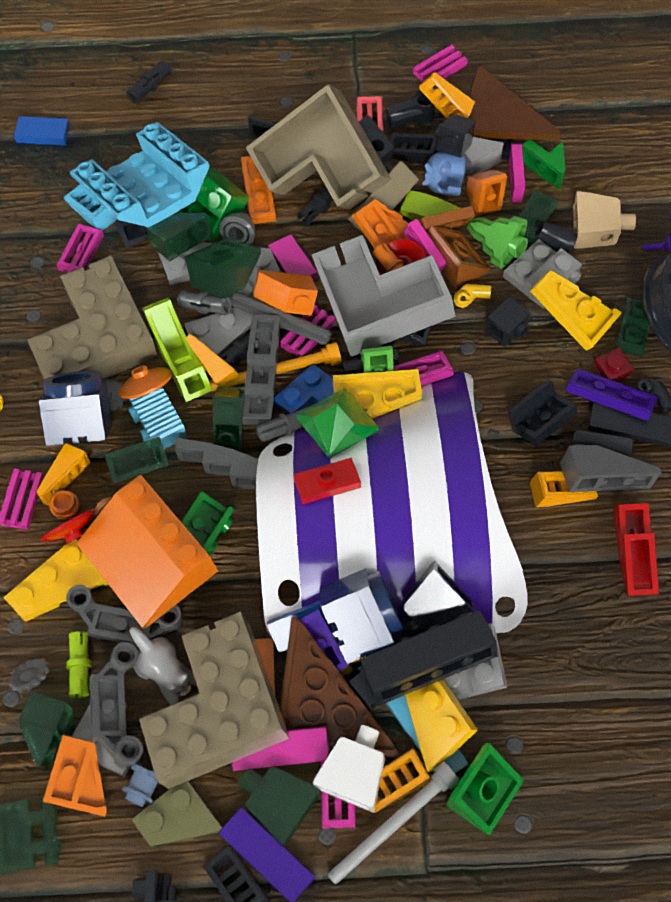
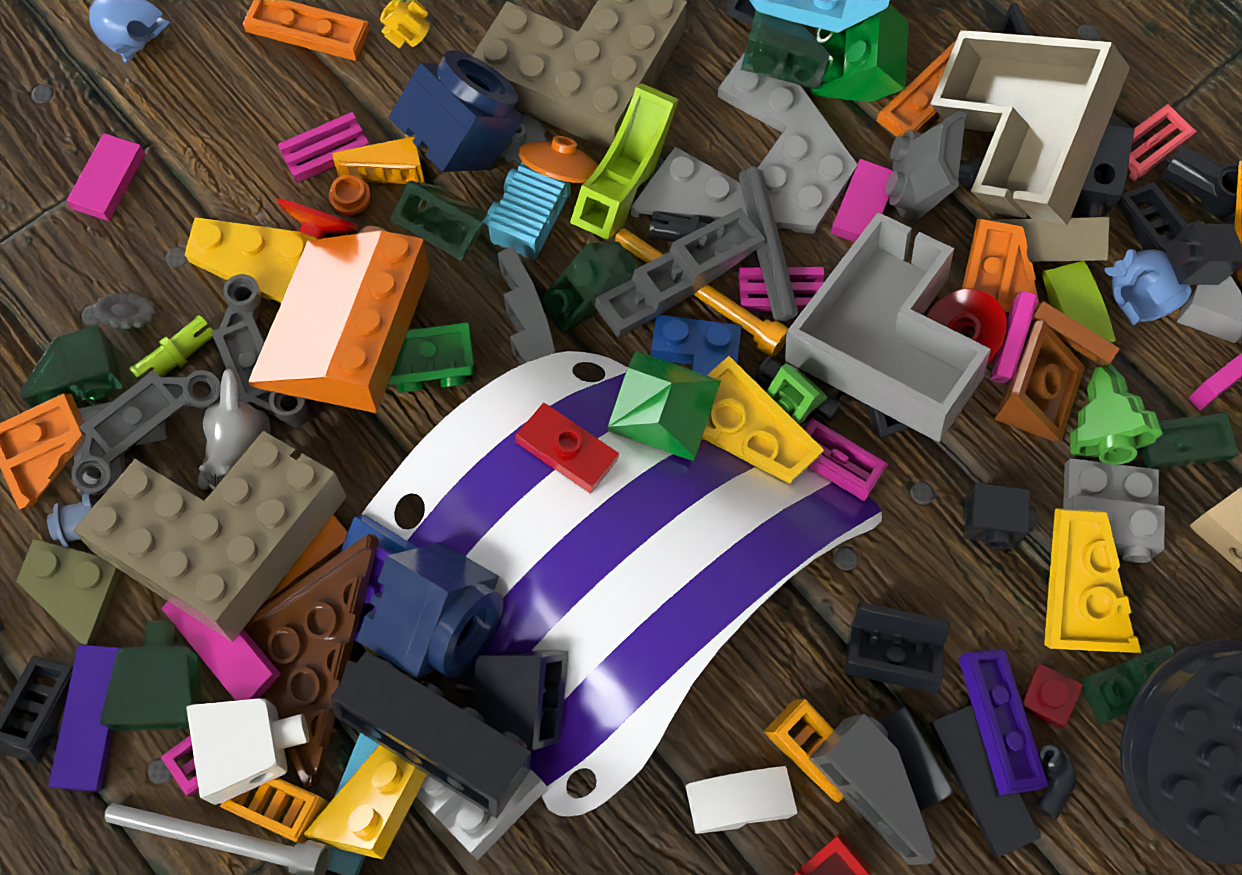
camera: 50 degrees right, 5 degrees up
(204, 302) = (718, 147): dark grey pin -> none
(217, 368) = (638, 215): light orange slope -> none
(222, 267) = (775, 128): clear green slope -> none
(238, 227) = (851, 109): dark grey brick -> none
(283, 425) = (619, 345): dark grey axle -> none
(286, 291) = (805, 222): orange slope -> none
(303, 217) = (925, 167): none -> dark grey slope
(387, 258) = (954, 305): orange pin -> none
(470, 292) = (1001, 439): yellow arm -> none
(486, 191) = (1166, 354): orange slope -> none
(557, 236) = (1180, 489): black cone -> none
(565, 539) = (741, 799): none -> white slope

